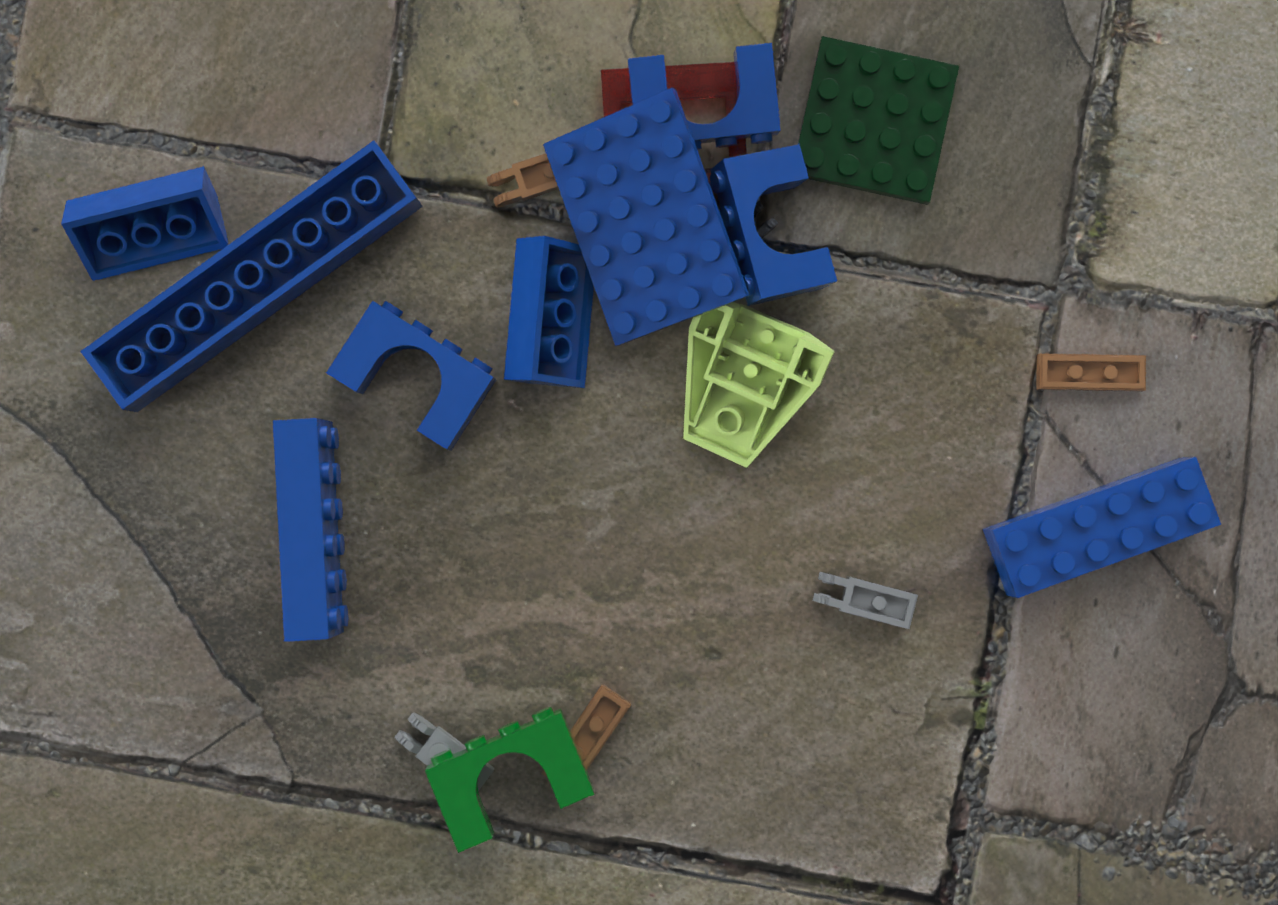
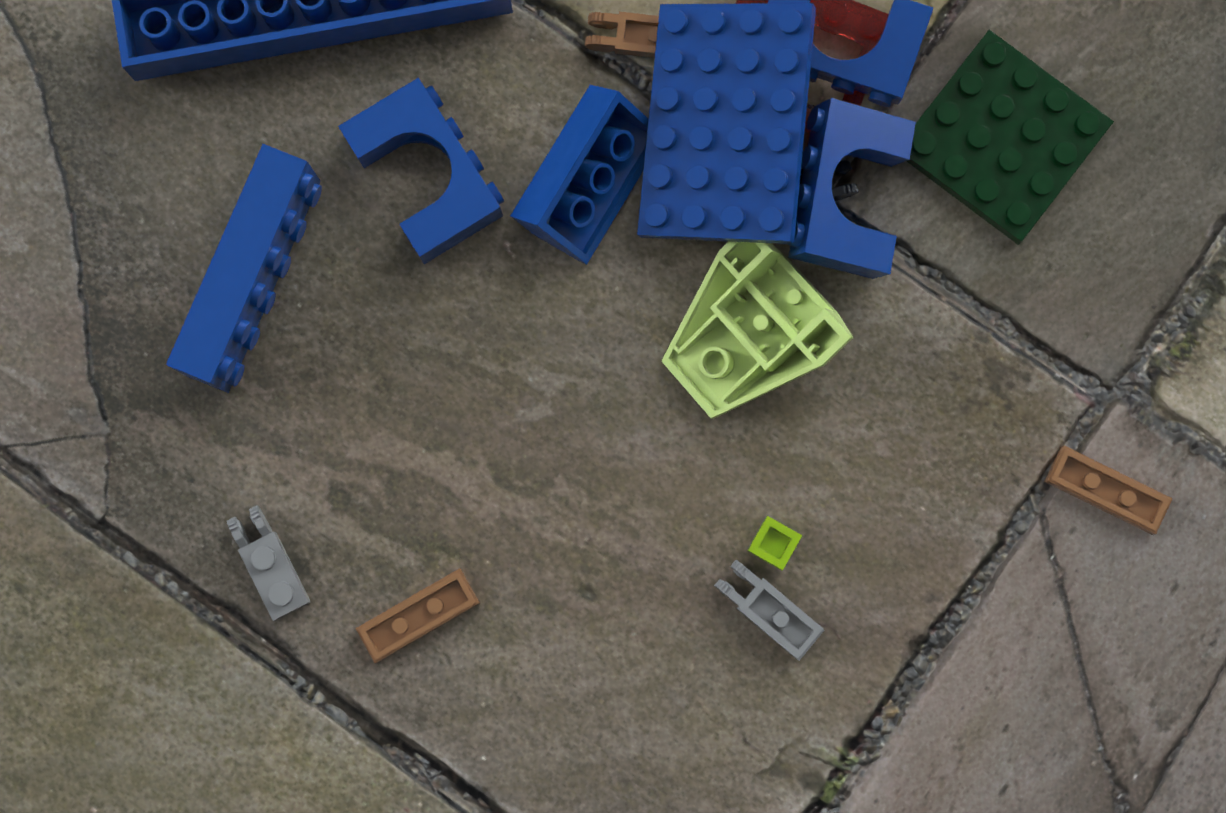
camera: 25 degrees right, 5 degrees down
(456, 775) = (269, 587): green arch -> none
(845, 544) = (774, 543): none -> lime plate
(1101, 526) = (1046, 649): blue brick -> none

